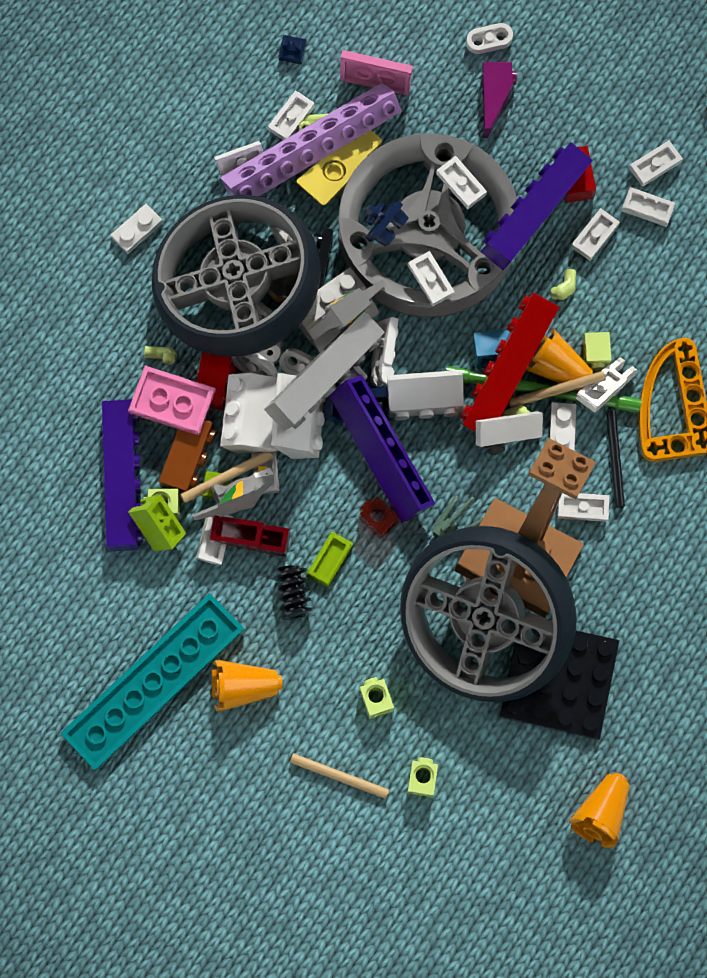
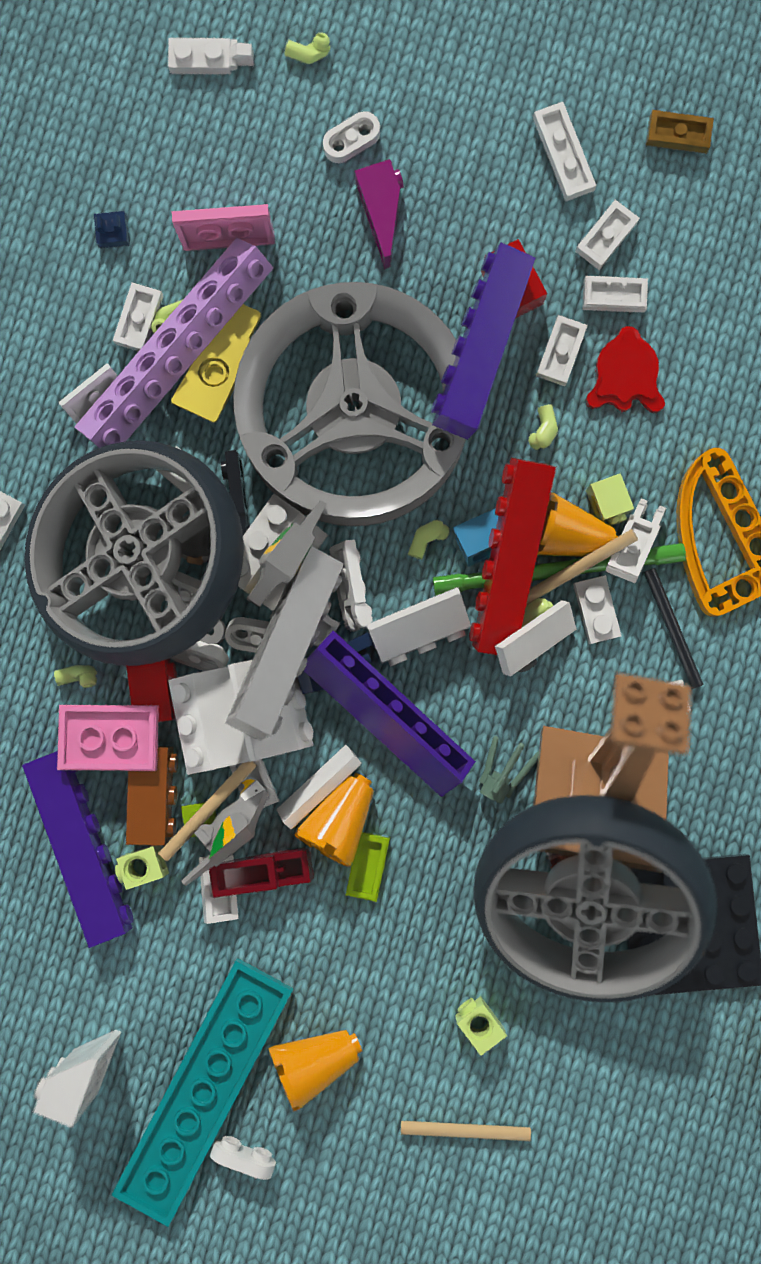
camera: 10 degrees left, 10 degrees up
(71, 629) = (75, 1080): none -> white slope
(157, 523) = (143, 898): lime hinge -> none
(159, 731) = (252, 1162): none -> white plate
(293, 592) = (338, 925): black piece -> none
(313, 488) = (318, 787): none -> white tile
(319, 516) = (339, 820): none -> light orange cone
(382, 527) = (419, 808): clear red brick -> none
(392, 214) = (305, 411): dark blue hips -> none
(422, 789) = (572, 1118): yellowish green brick -> none
(431, 278) = (381, 480): white plate -> none
(453, 333) = (426, 534): none -> yellowish green arm
(461, 182) = (379, 340): white plate -> none
(638, 265) = (626, 372): none -> red tile
(643, 95) = (564, 151): none -> white plate

